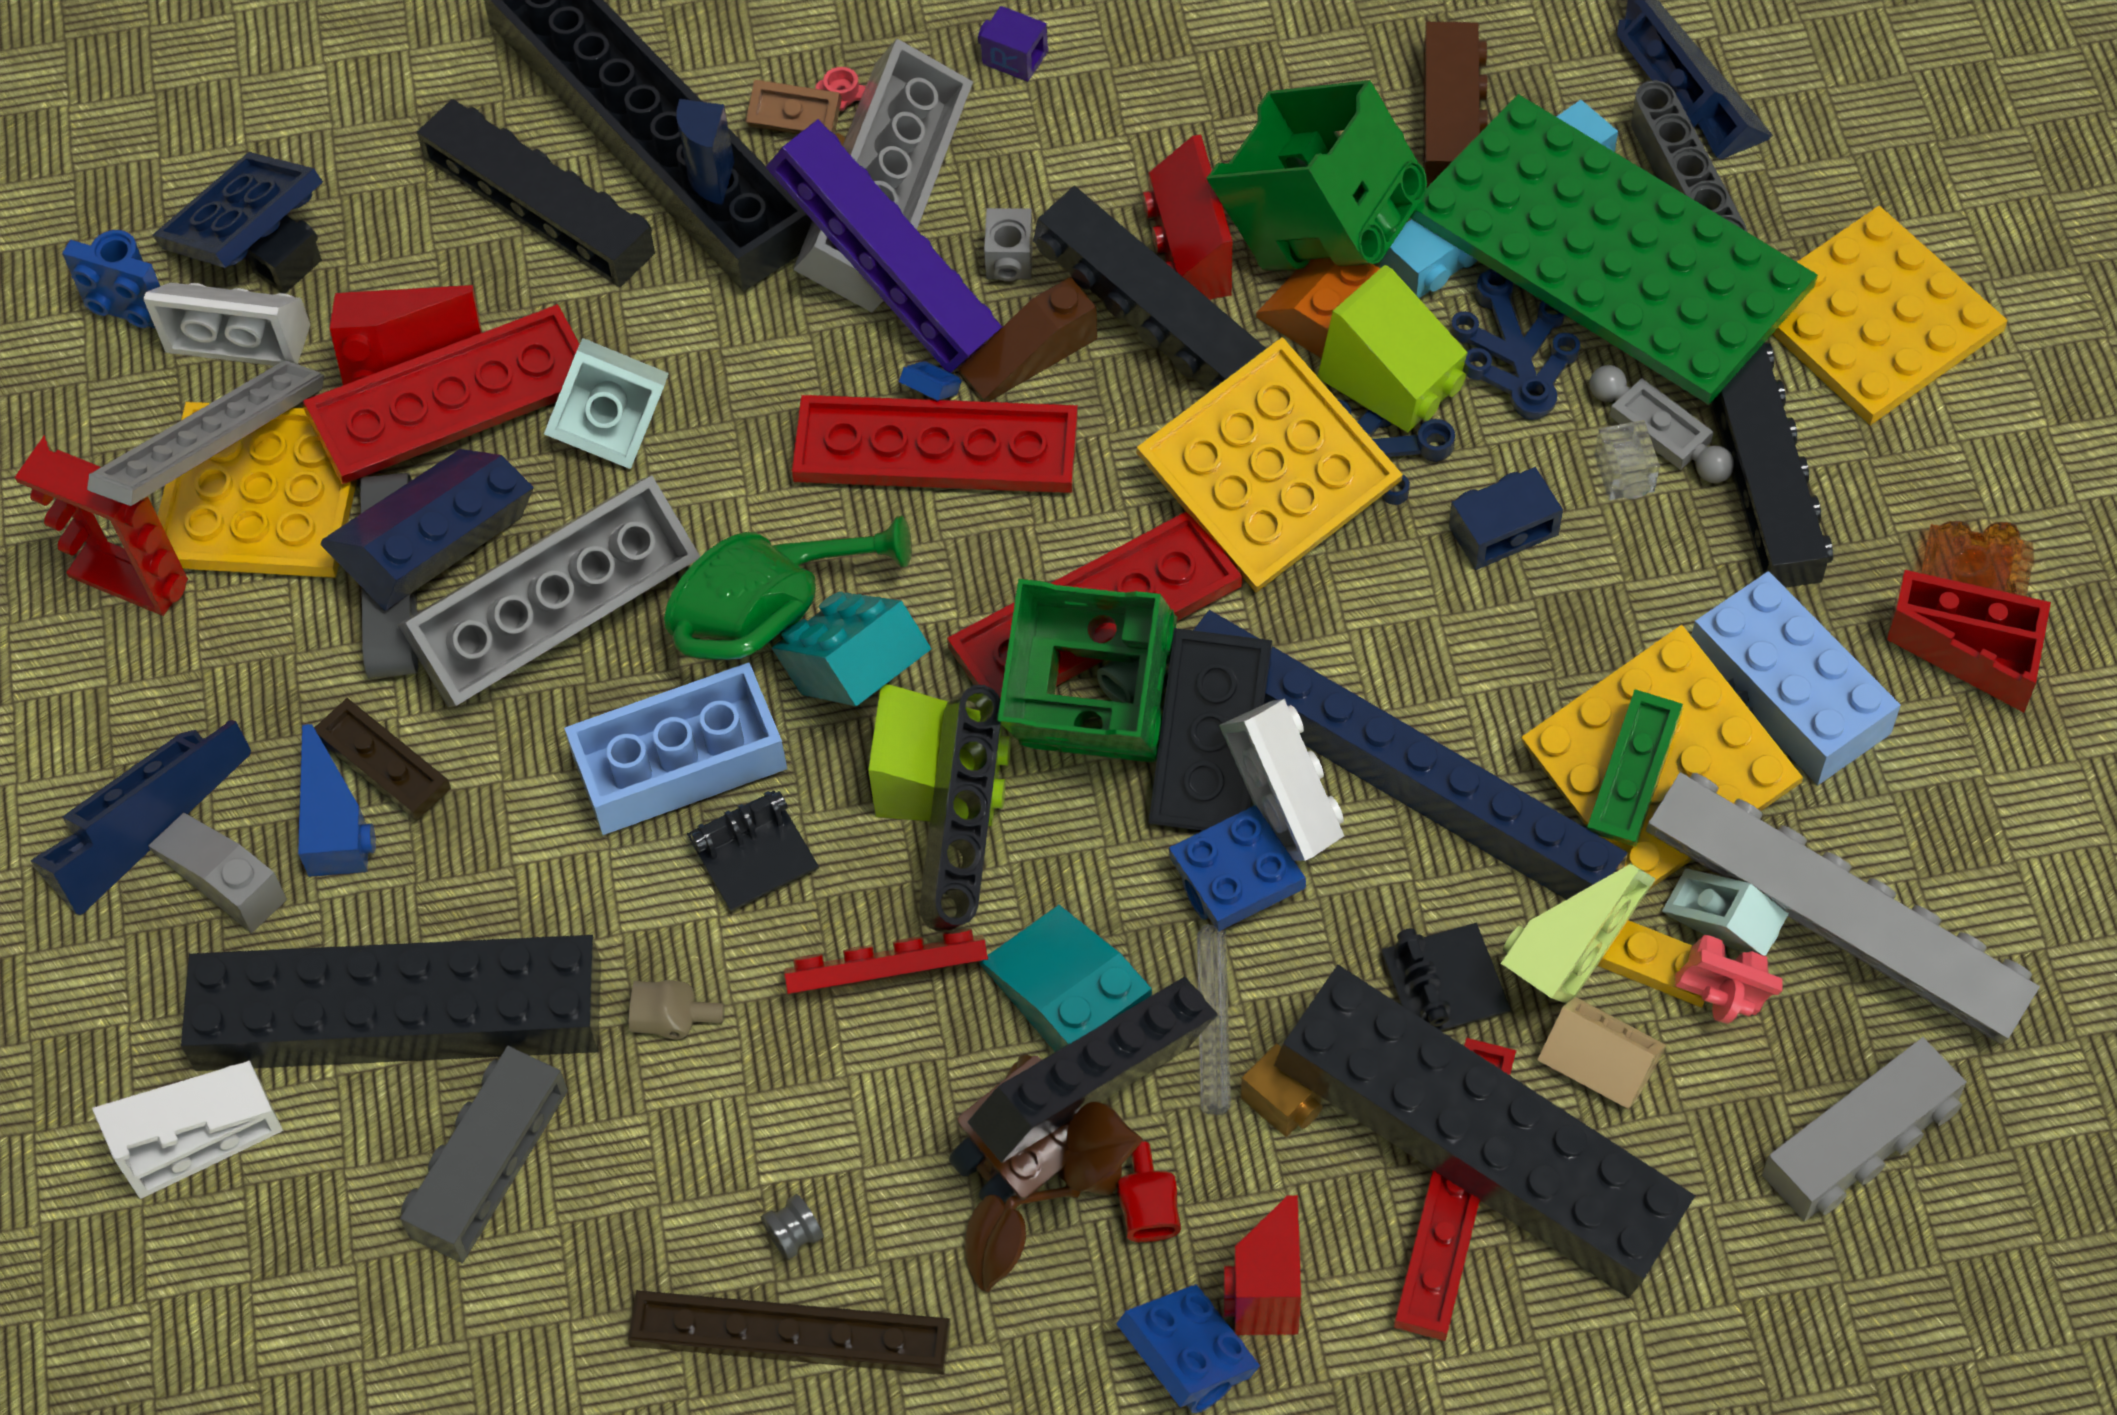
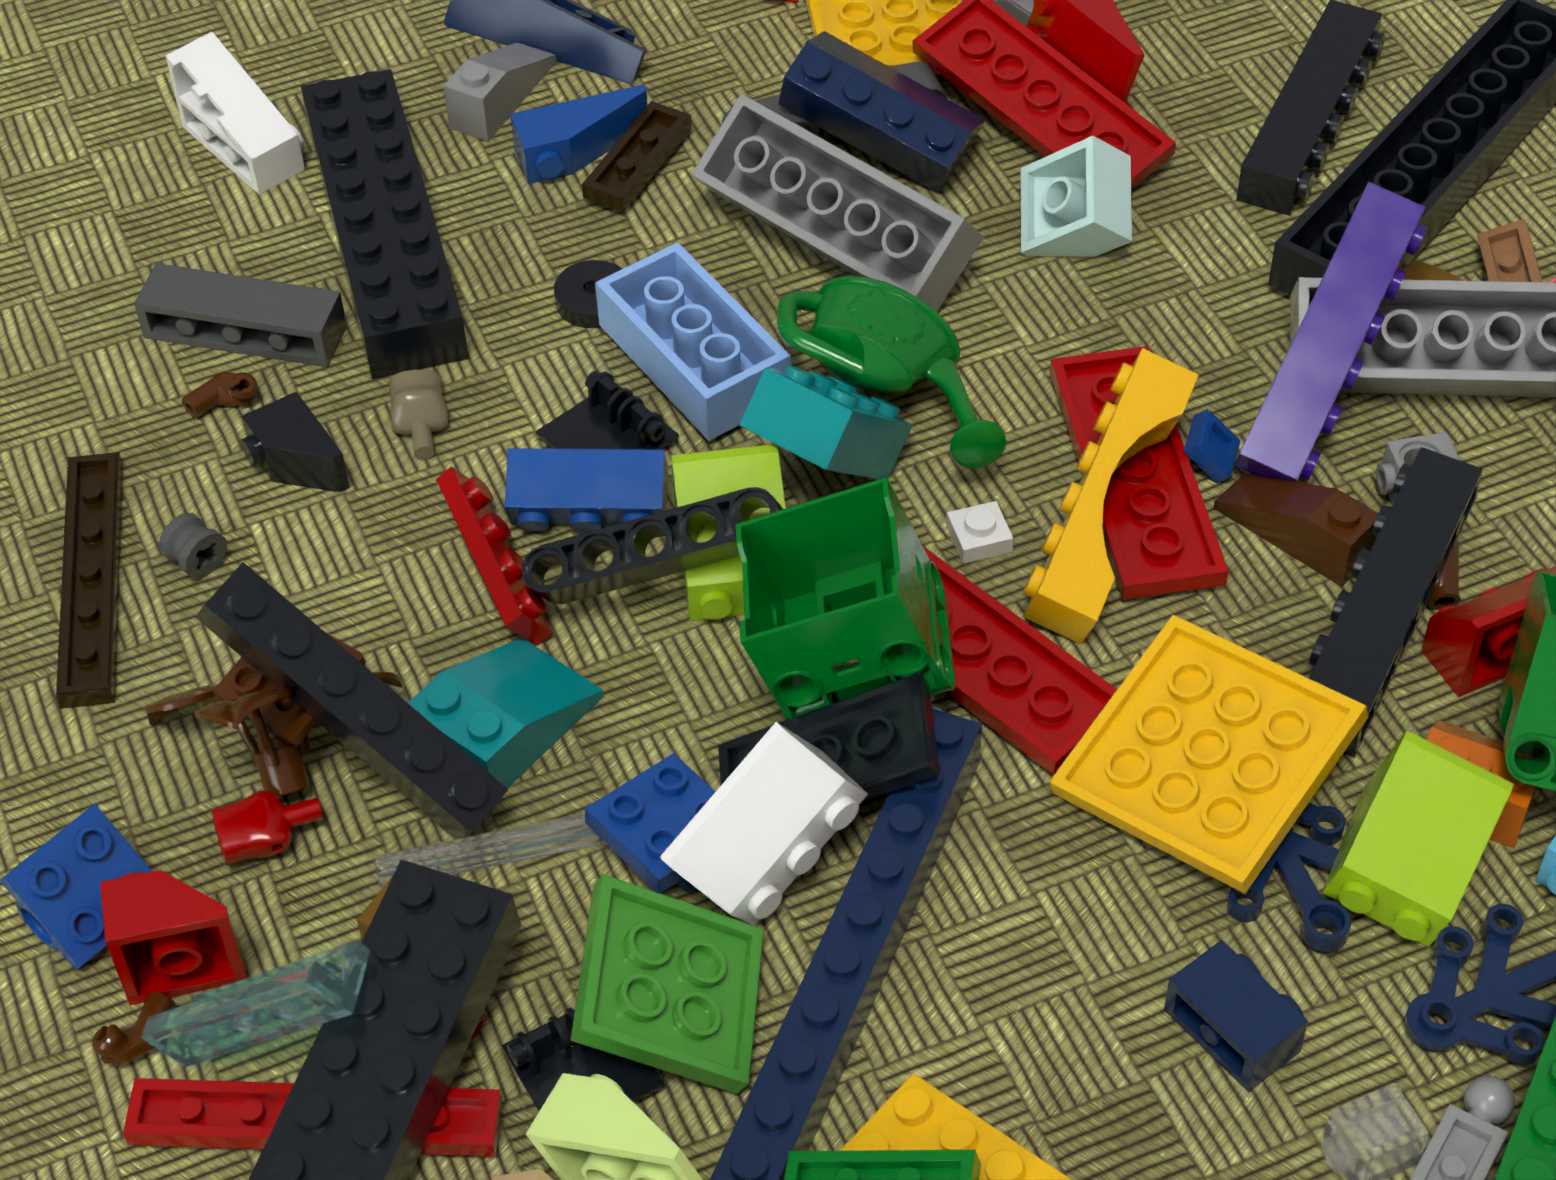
camera: 75 degrees right, 10 degrees down
(560, 853) = (577, 291): none -> black piece
(578, 1185) = (221, 390): none -> reddish brown arm
(689, 1120) = (293, 446): none -> black slope
(706, 147) = (1375, 155): dark blue brick -> none
(835, 871) = (583, 487): none -> blue brick
(965, 579) = (979, 532): none -> white plate
(1049, 510) = (1077, 574): none -> yellow arch
(1343, 1323) = (123, 1046): none -> reddish brown arm
(1383, 1202) = (261, 1007): none -> clear light blue fence
(1403, 890) = (668, 985): none -> bright green plate

